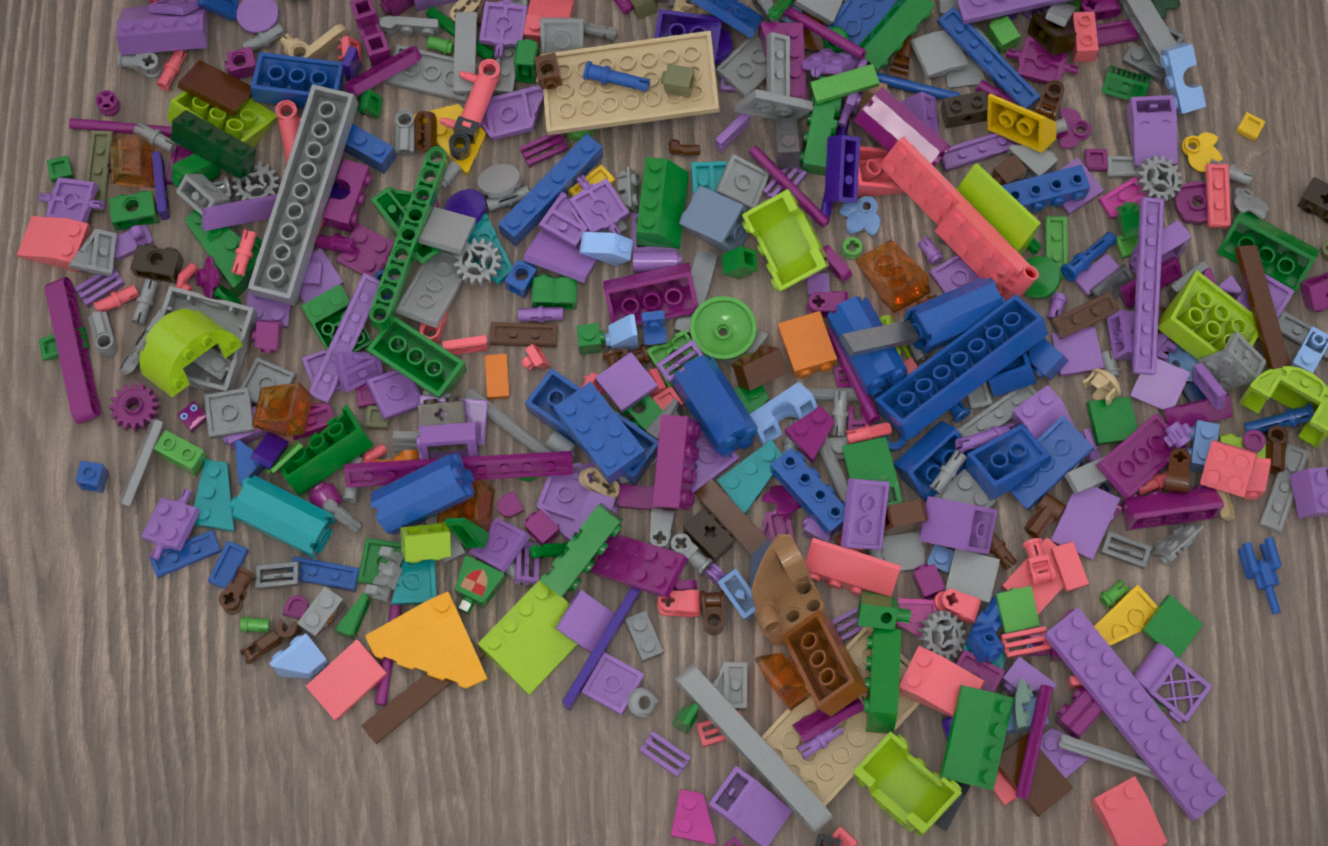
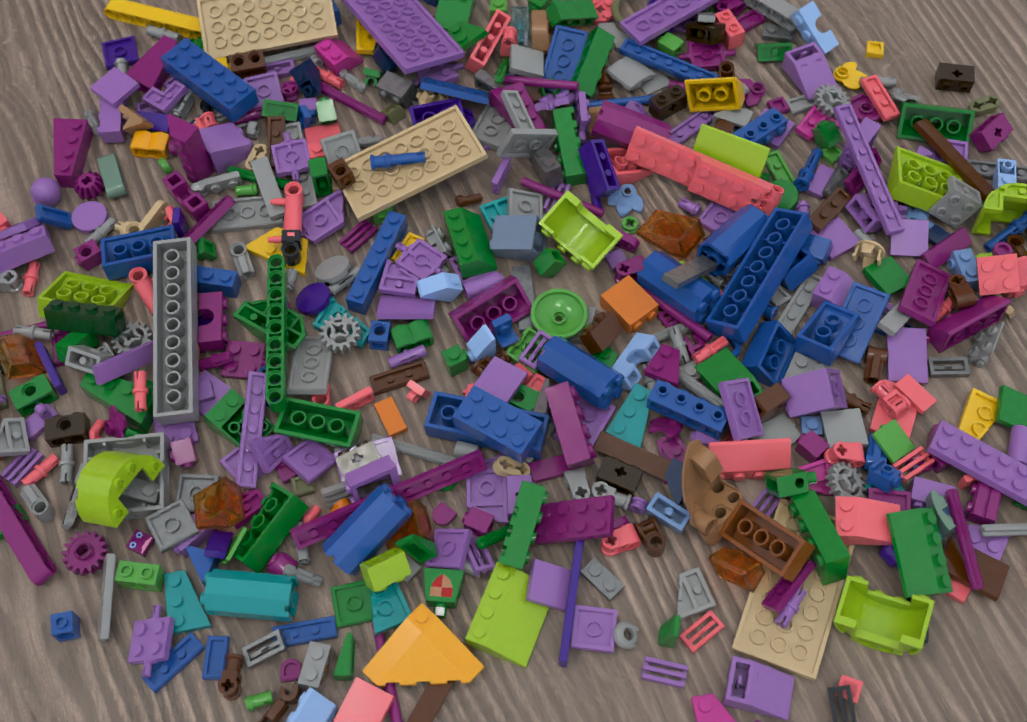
camera: 20 degrees left, 10 degrees down
(216, 87) = (73, 278): reddish brown tile -> none
(387, 576) = (362, 611): light grey piece -> none
(425, 131) = (258, 253): reddish brown beam -> none
(447, 230) = (306, 316): light grey tile -> none
(678, 80) = (447, 143): olive brick -> none
(753, 748) = (741, 636): light grey beam -> none
(844, 83) = (574, 107): bright green tile -> none
(948, 472) = (786, 357): light grey pin -> none
(979, 439) = (799, 322): medium lavender pin -> none
(1110, 596) = (956, 406): bright green pin -> none
(1176, 287) = (888, 160): flat silver tile -> none
(1177, 434) = (944, 266): medium lavender gear -> none
(1209, 386) = (948, 224): medium lavender tile -> none

